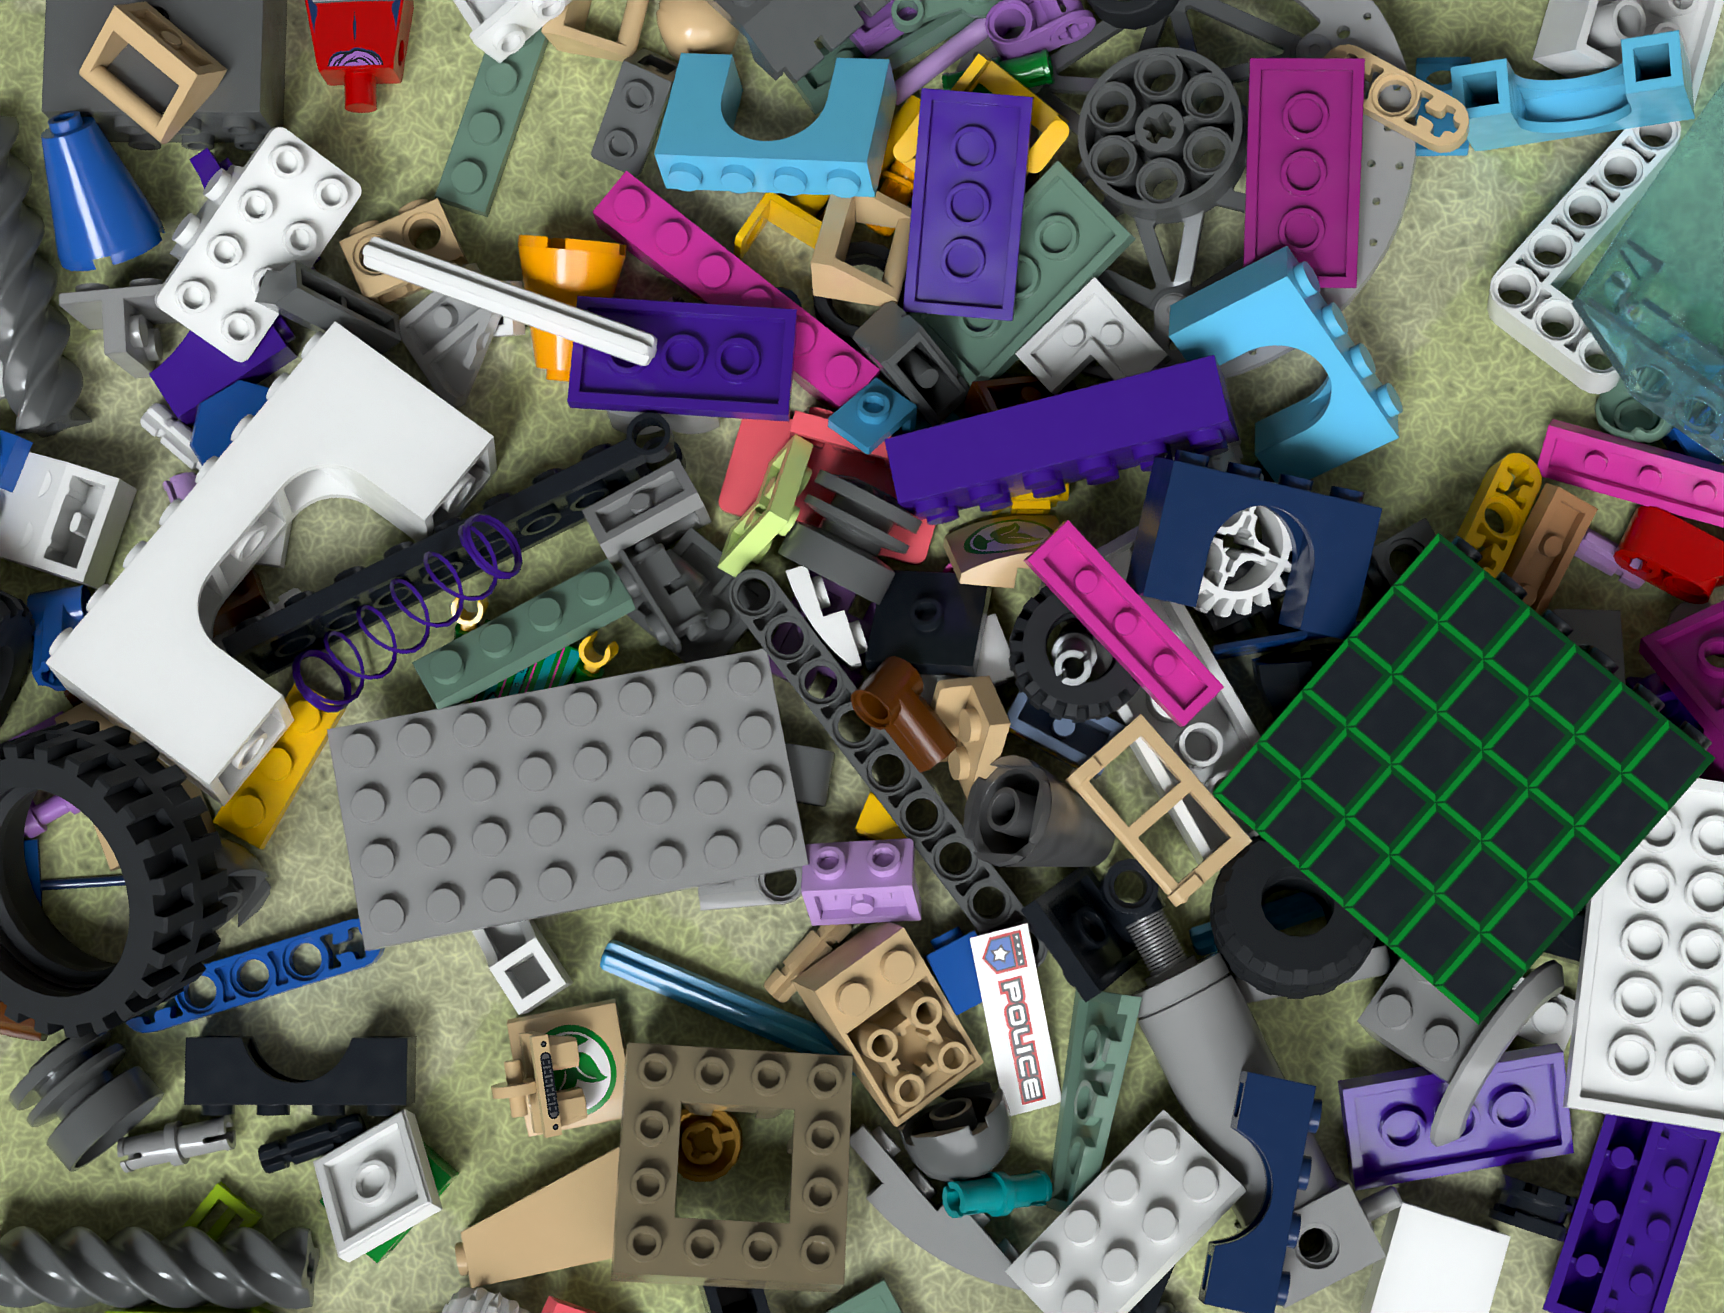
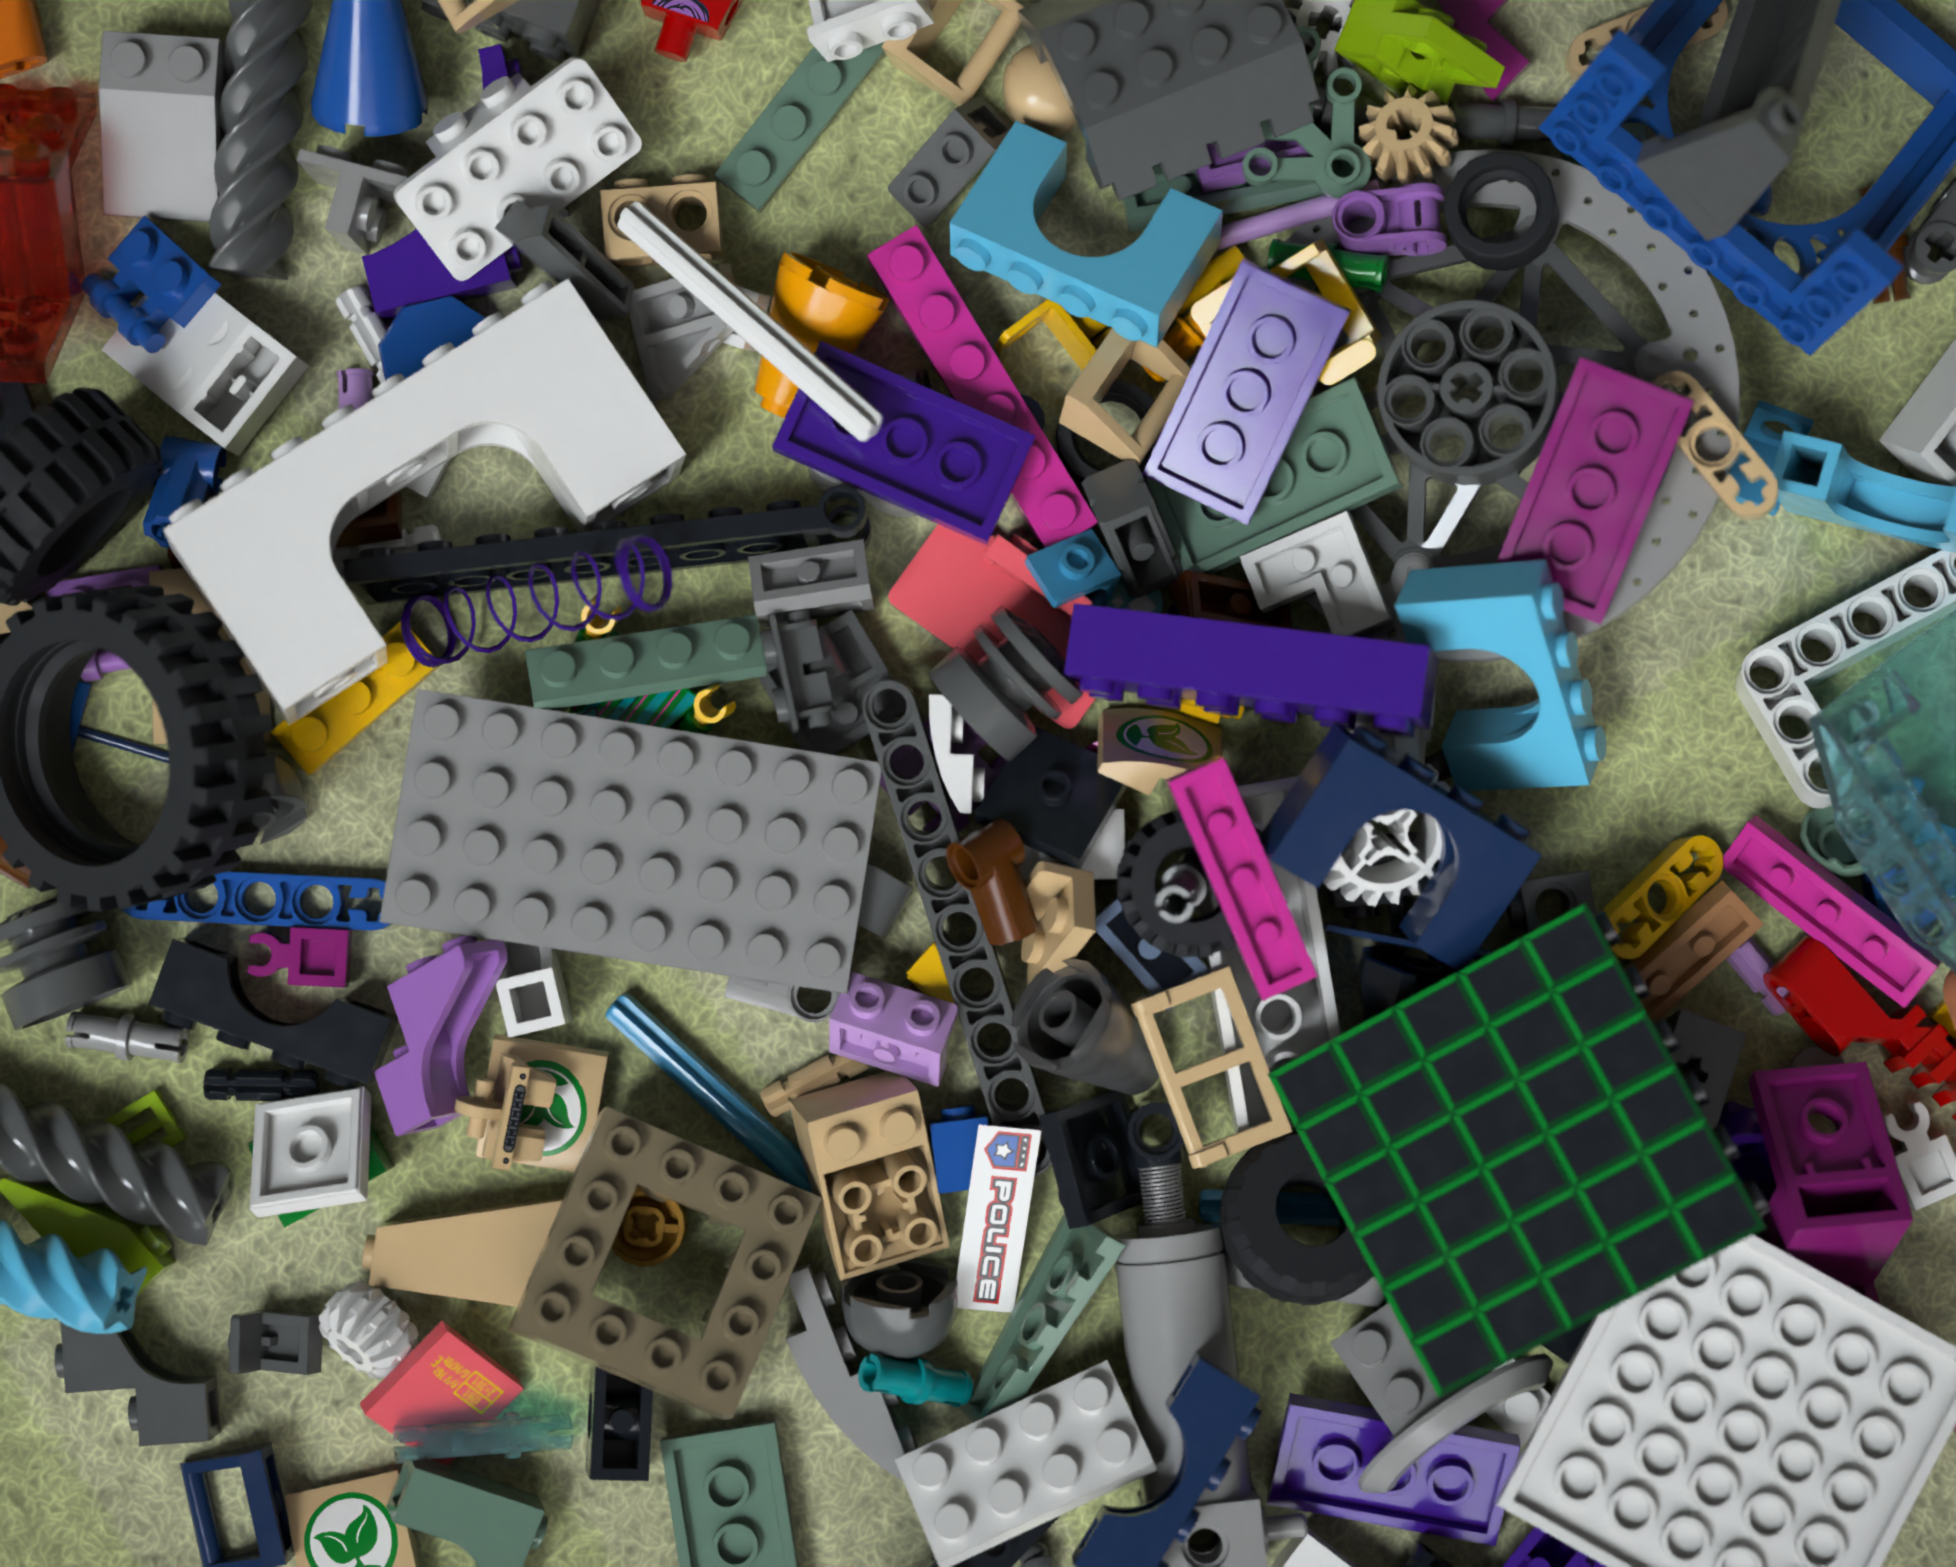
camera: 15 degrees right, 5 degrees up
(318, 1009) = (312, 957): none -> magenta plate
(447, 1017) = (436, 1014): none -> medium lavender arch
(772, 511) = (938, 627): yellowish green plate -> none

